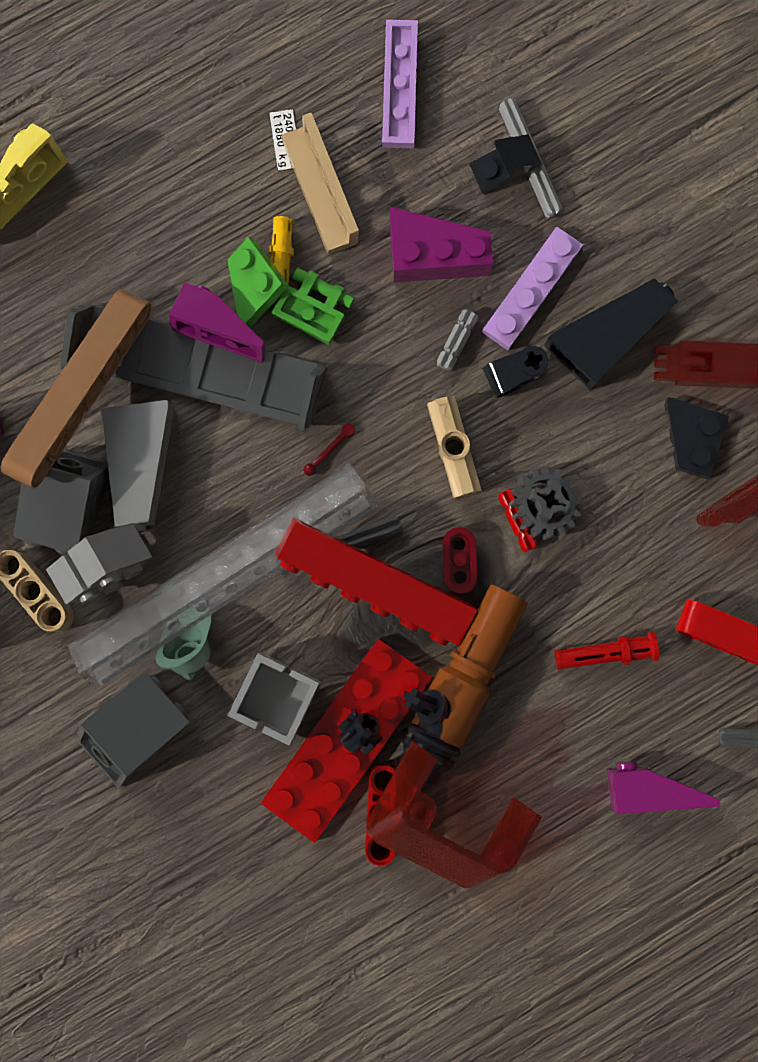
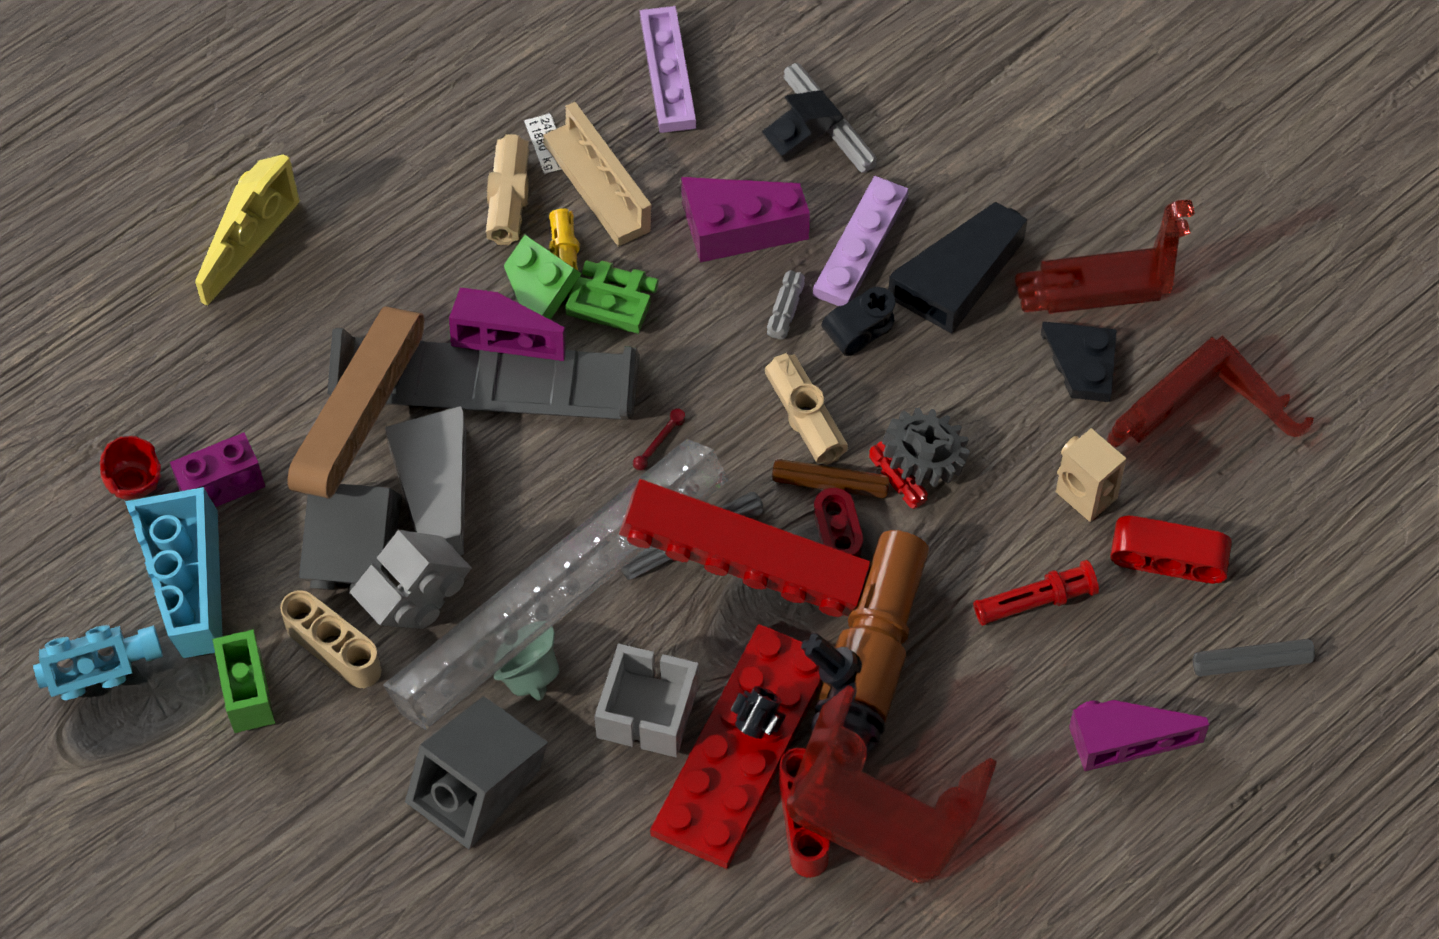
camera: 10 degrees left, 25 degrees down
(242, 184) = (507, 190): none -> tan piece
(462, 513) = (830, 477): none -> reddish brown axle
(676, 559) = (1090, 474): none -> tan brick

